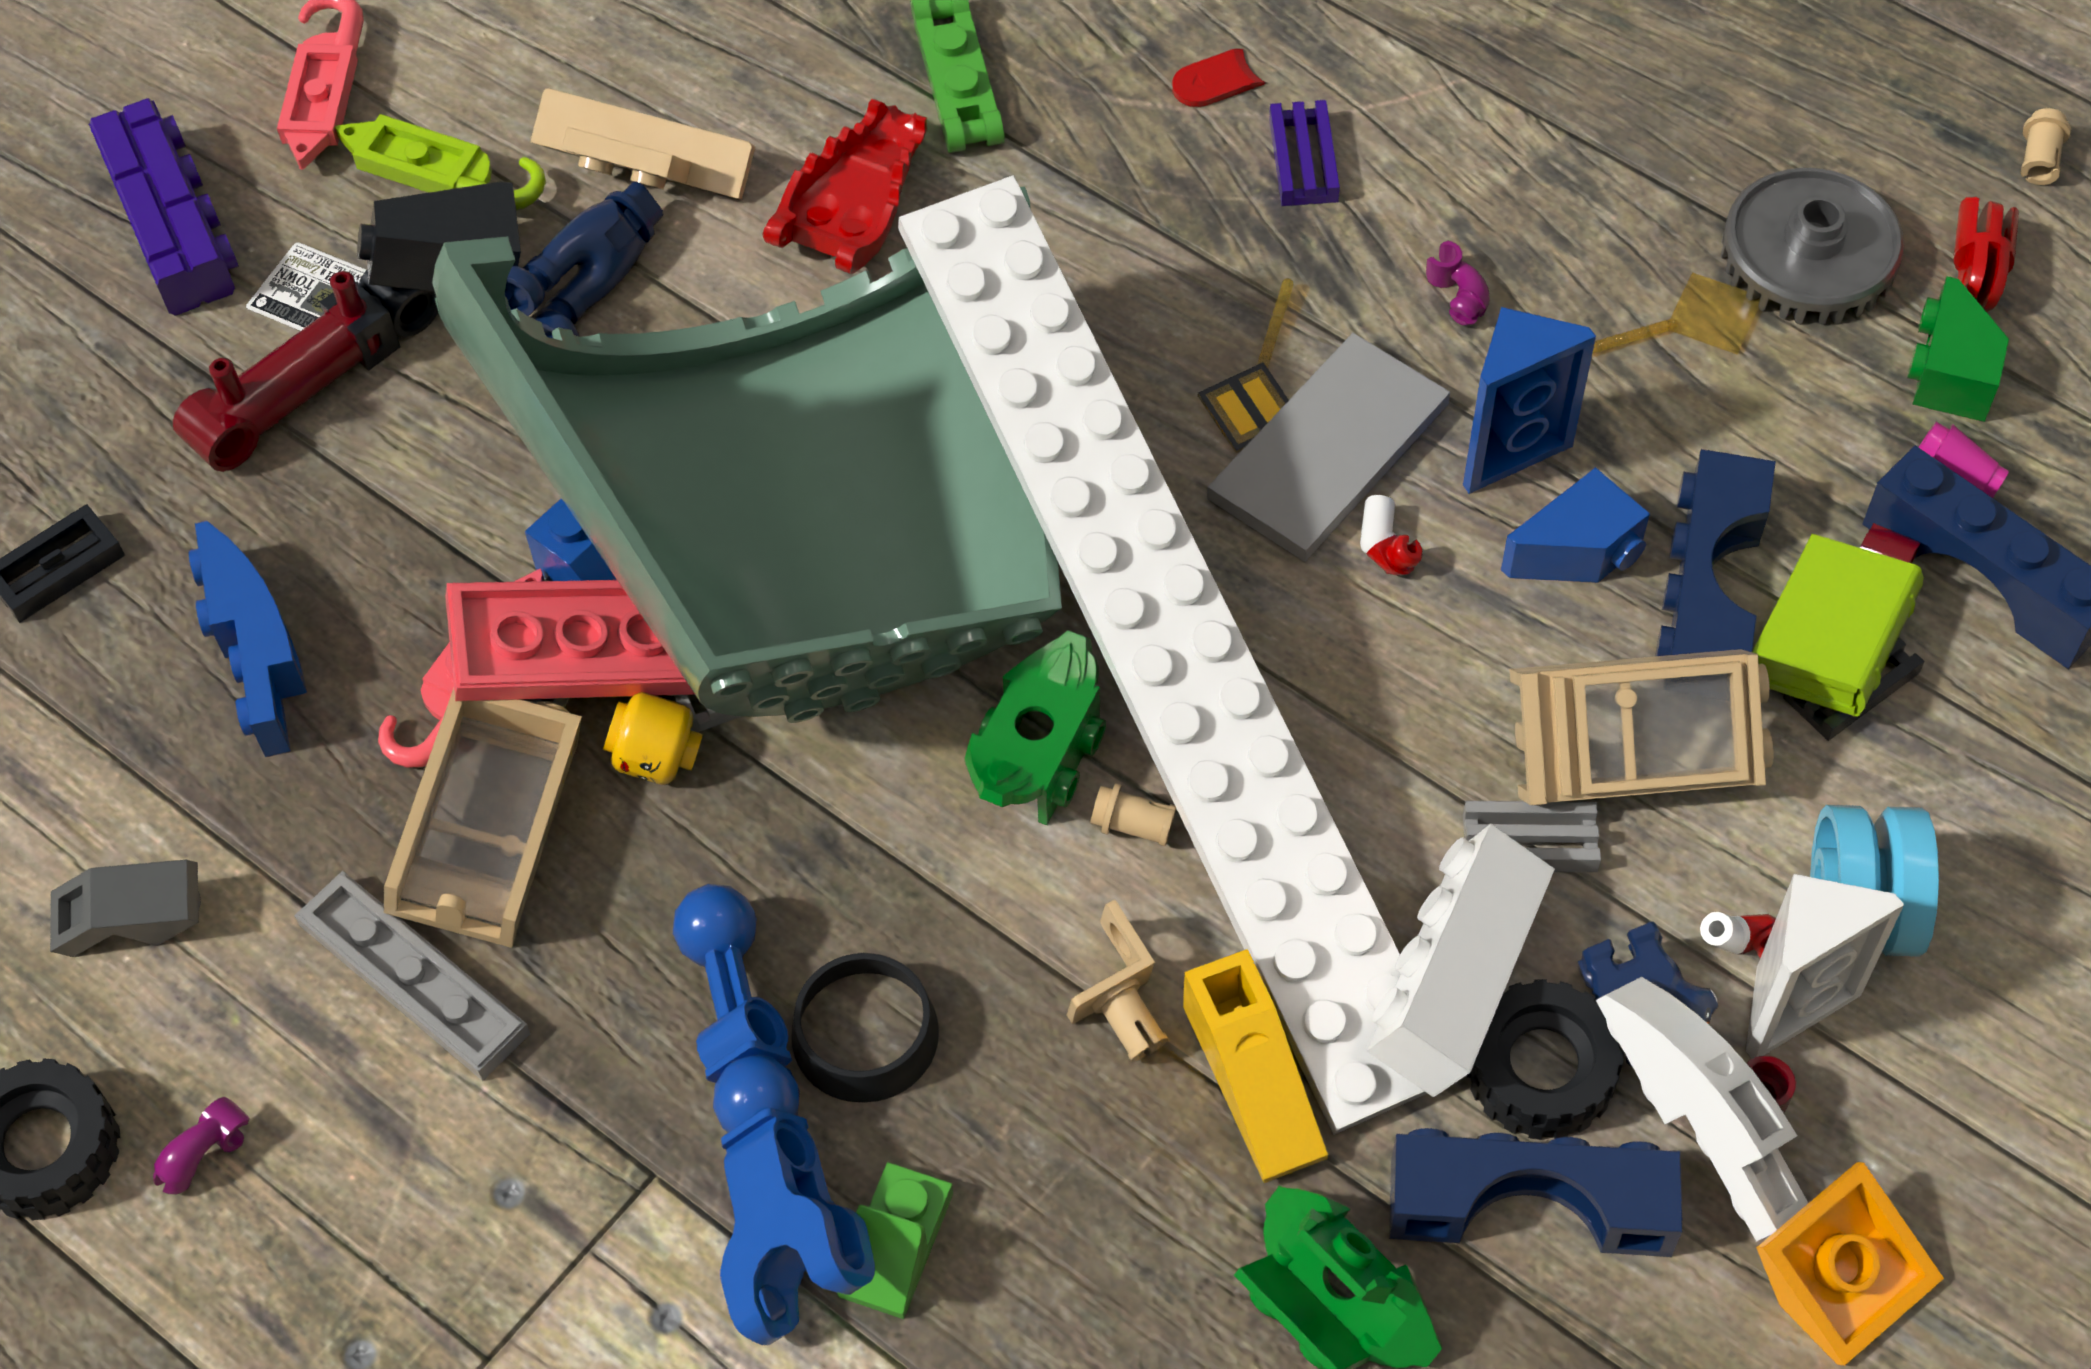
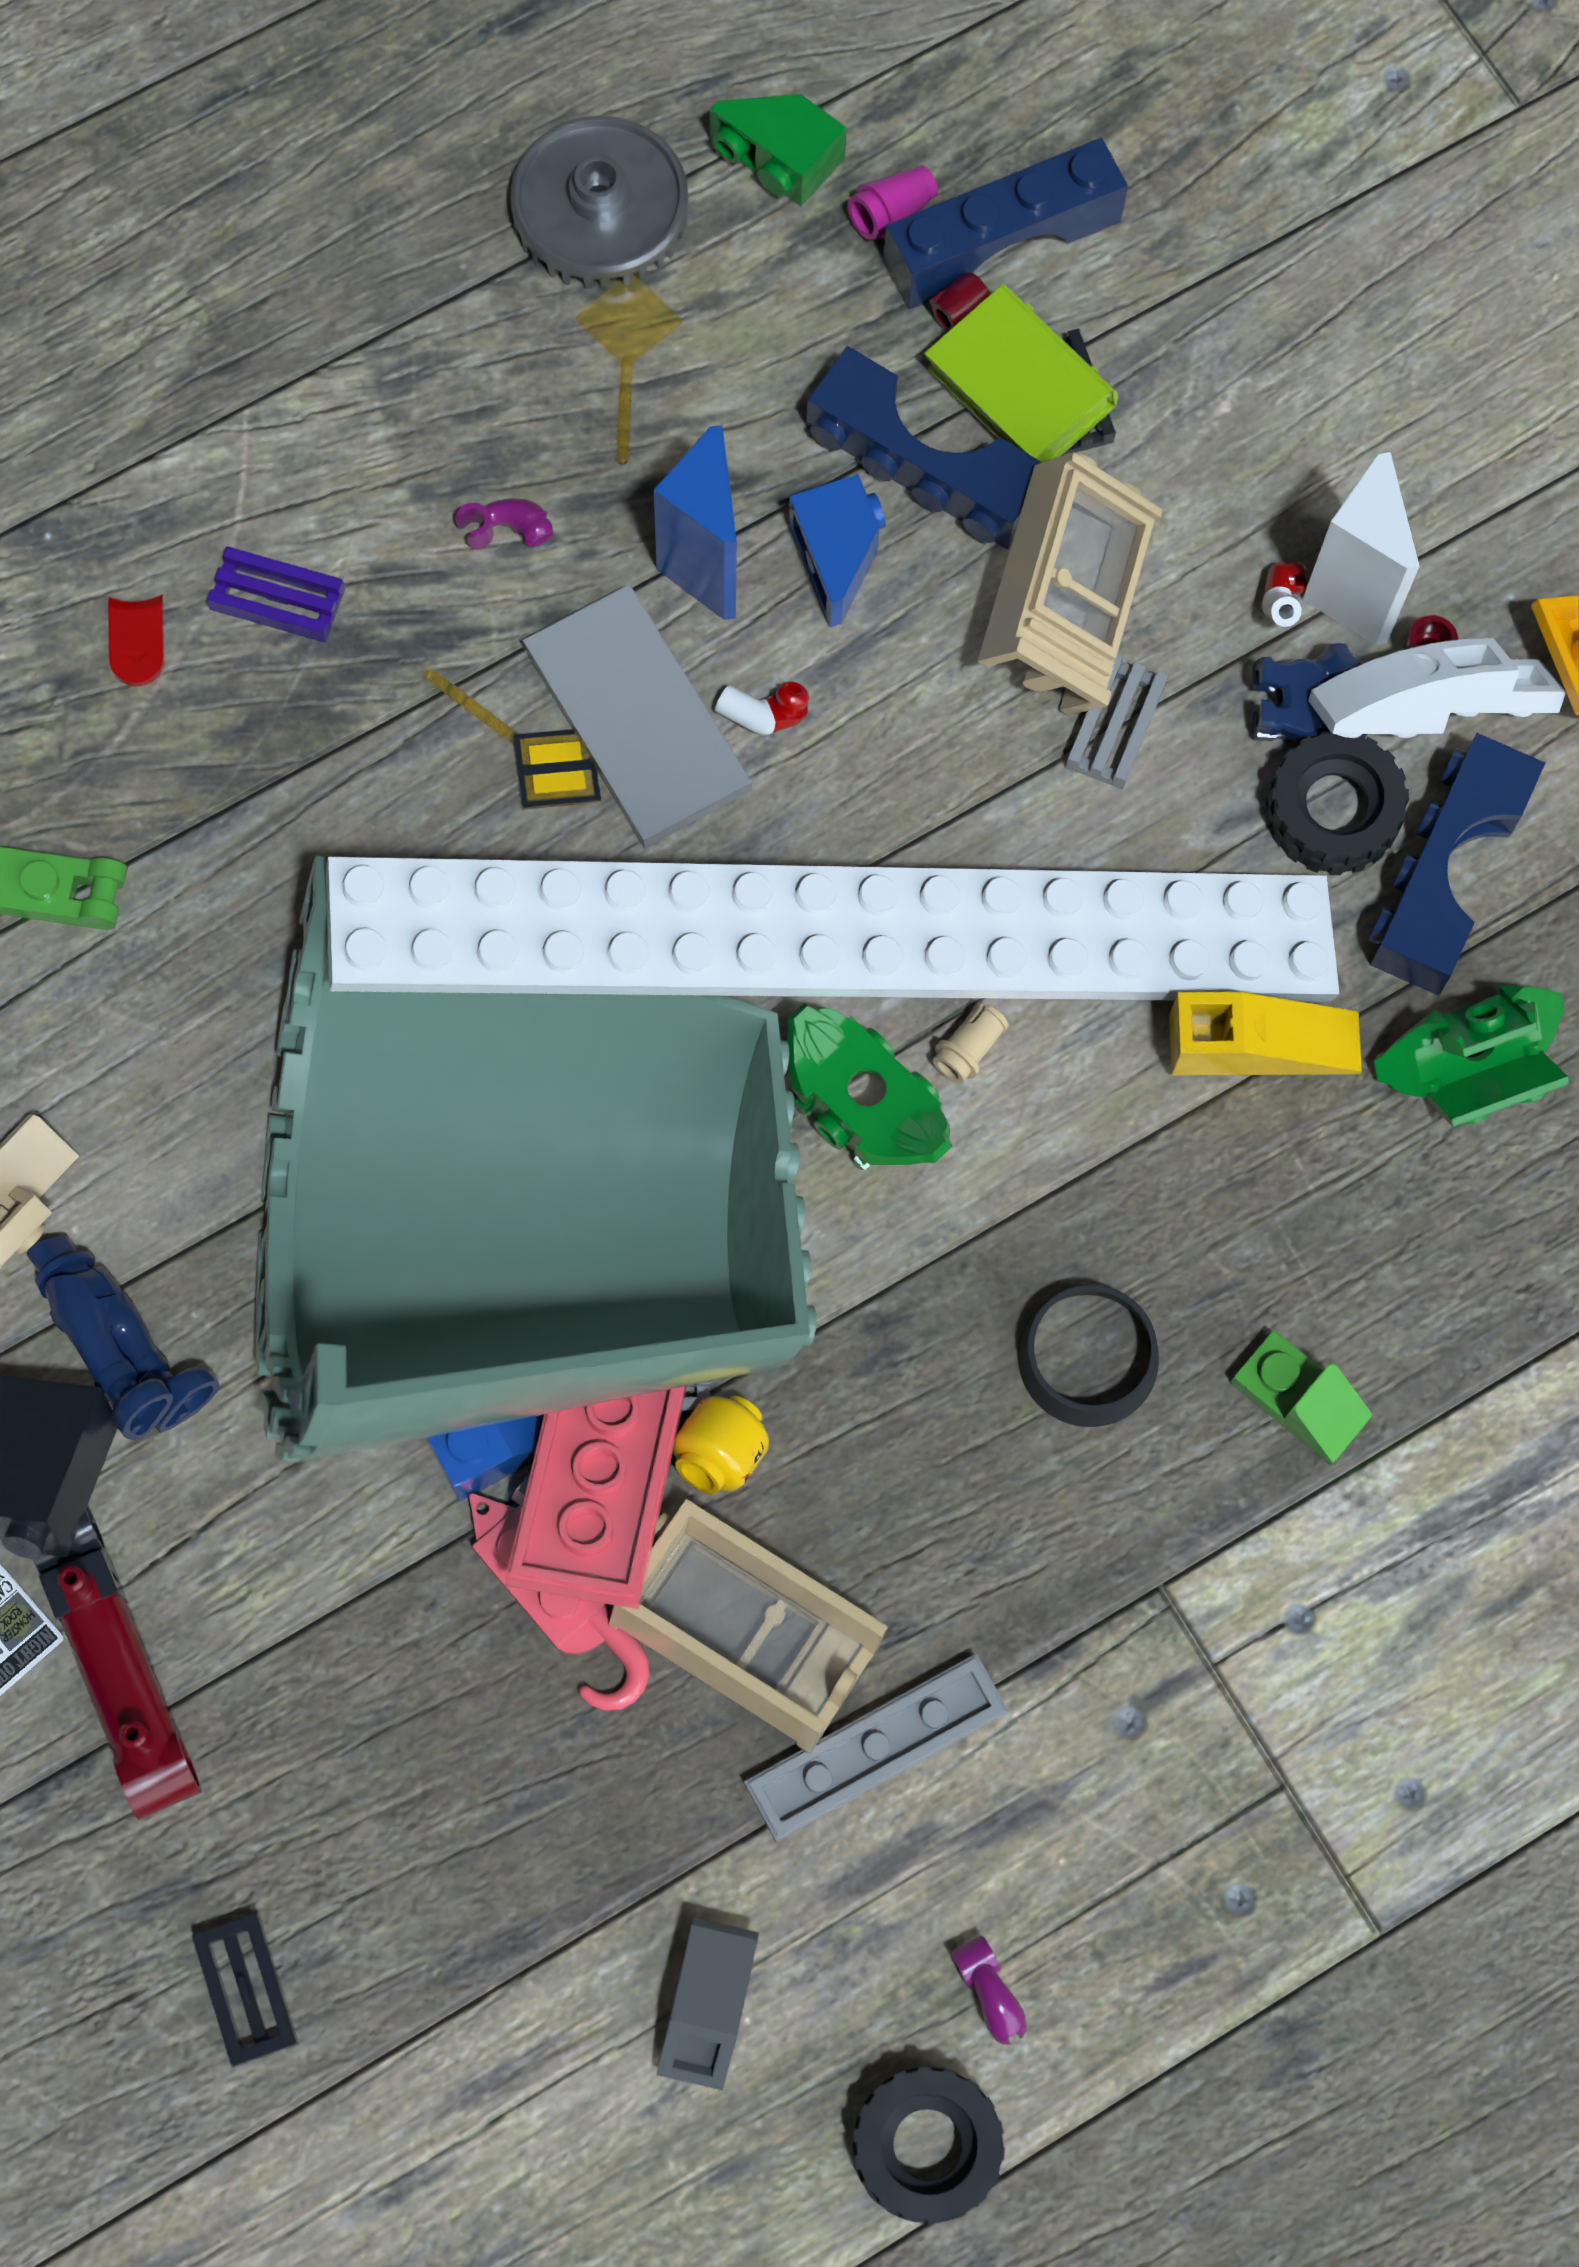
camera: 75 degrees left, 15 degrees up
(250, 633) = (405, 1799): blue slope -> none
(771, 1160) = (1209, 1471): blue piece -> none
(851, 190) = (134, 1038): red animal -> none
(1118, 994) = (1146, 1124): tan bracket -> none
(1459, 960) = (1242, 824): white brick -> none
(1886, 856) = (1293, 467): medium azure wheel -> none
(1985, 249) = (679, 64): red arm -> none

